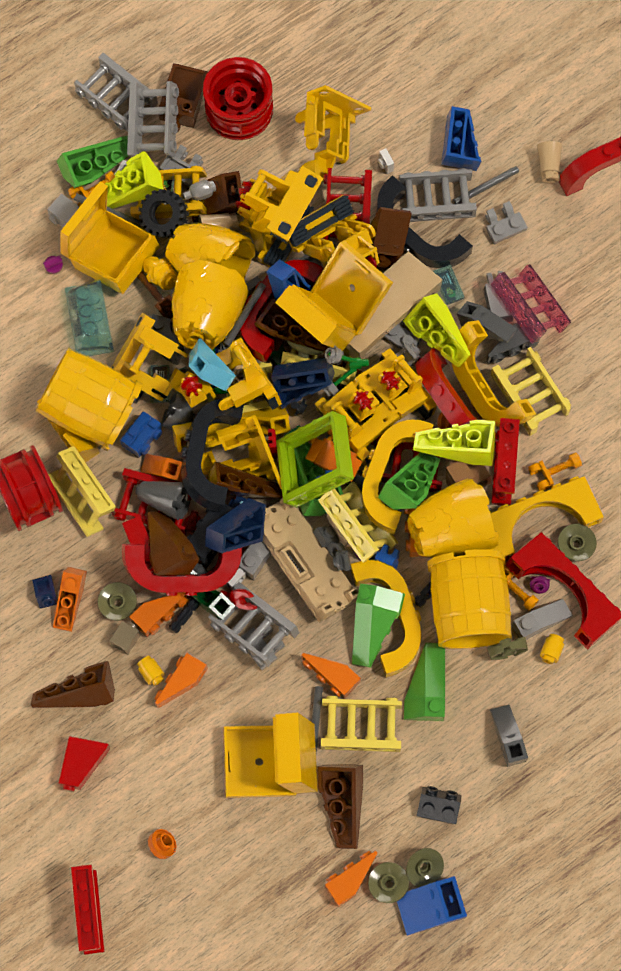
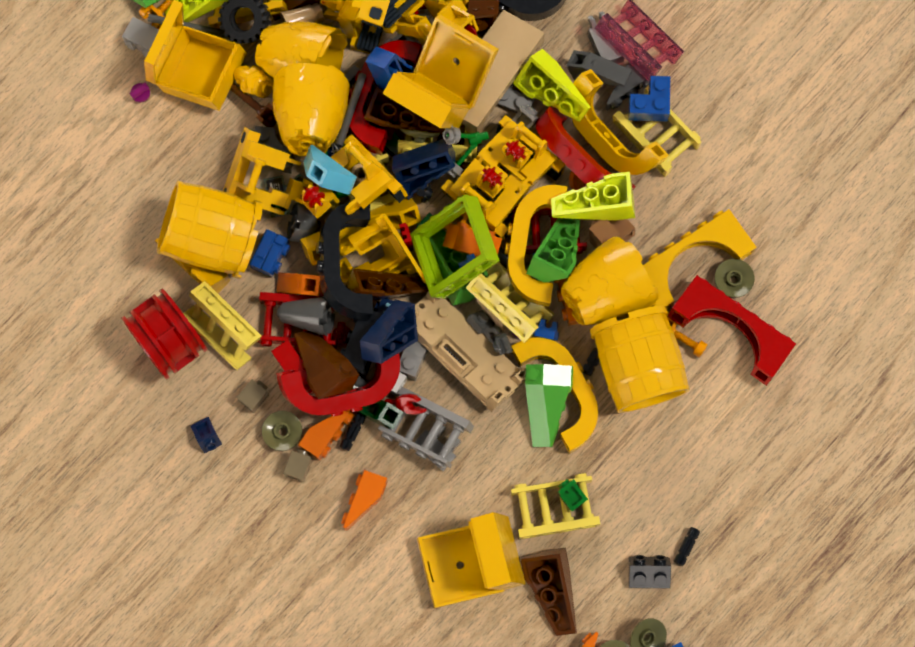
camera: 10 degrees left, 5 degrees up
(69, 598) = (232, 437): orange slope -> none
(80, 762) = (280, 601): red slope -> none
(88, 689) = (270, 527): reddish brown wedge -> none
(89, 318) = (190, 143): clear light blue windscreen -> none
(97, 563) = (253, 395): none -> dark tan brick
(150, 670) = (331, 495): yellow brick -> none
(316, 711) = (507, 501): dark grey bar -> none
(336, 674) = (520, 461): orange slope -> none
(378, 714) = (571, 494): none -> green bracket
(427, 689) = (614, 458): bright green wedge -> none
(450, 287) = (553, 37): clear light blue tile -> none
(480, 787) = (687, 546): none -> black axle
(505, 462) = (647, 210): red fence -> none
(507, 648) = (687, 400): olive plate -> none
(509, 736) = (705, 488): dark grey slope -> none
(532, 365) = (655, 104): none -> blue brick
(539, 584) = (704, 328): magenta plate -> none
(541, 619) = (714, 364): light grey slope -> none
(552, 649) = (730, 391): yellow brick -> none
(573, 461) = (714, 195): light orange bar -> none

